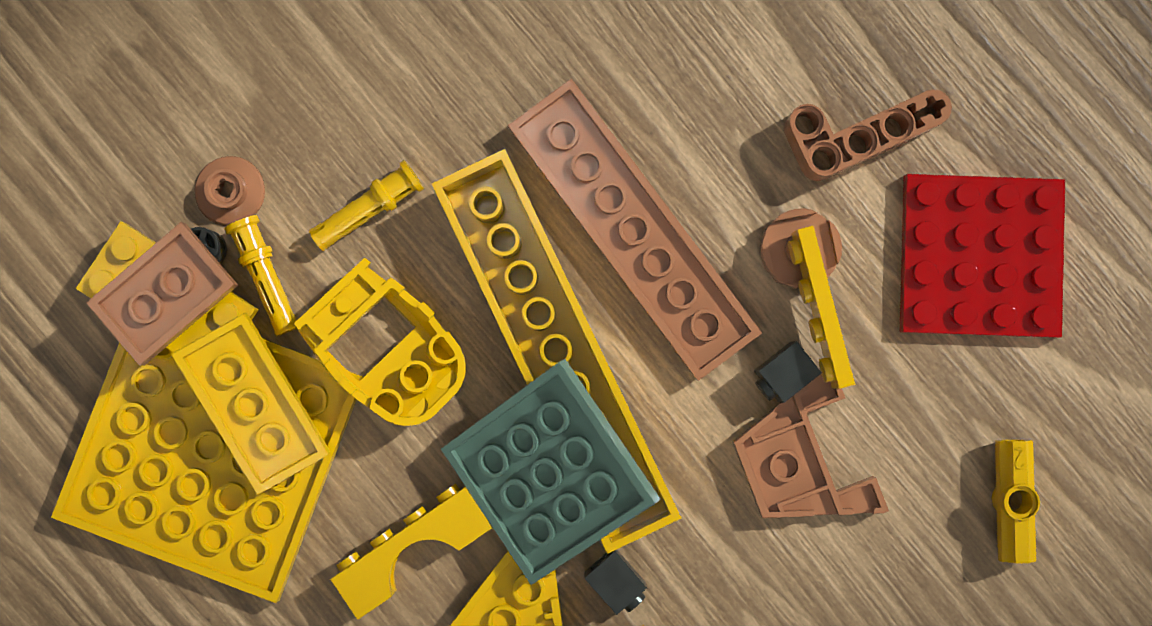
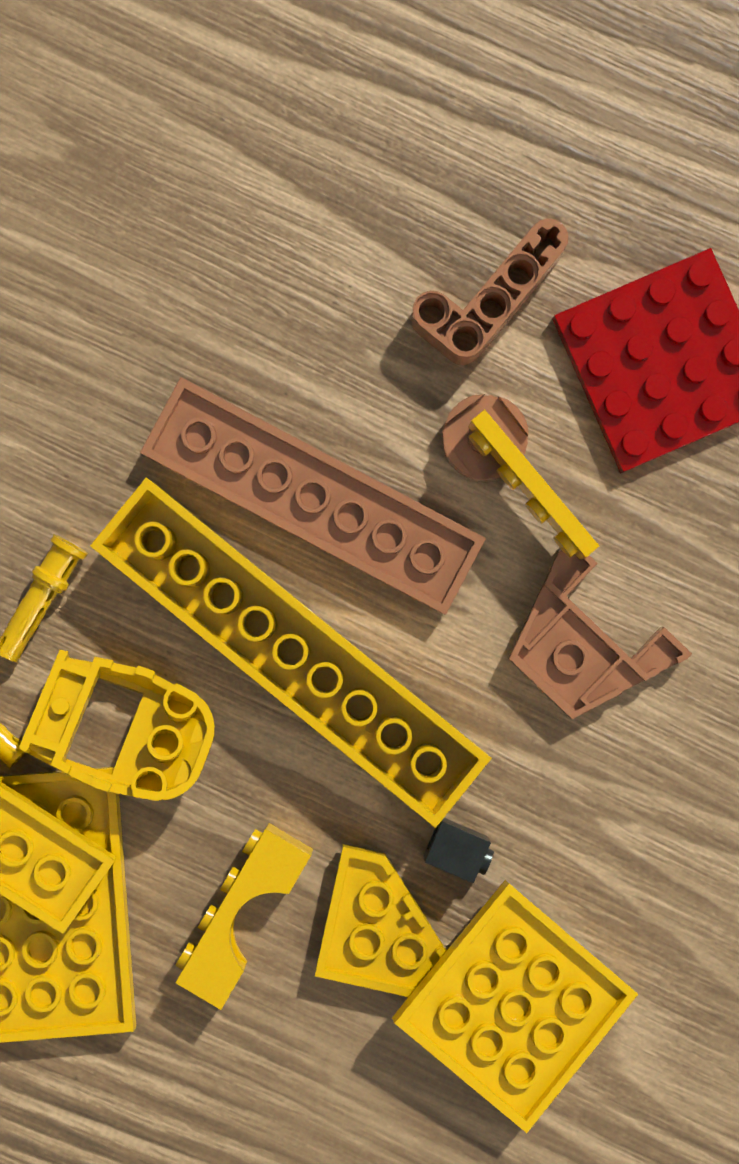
camera: 20 degrees left, 0 degrees up
(549, 472) = (340, 775): sand green plate -> none
(786, 373) = (528, 566): pearl dark grey brick -> none

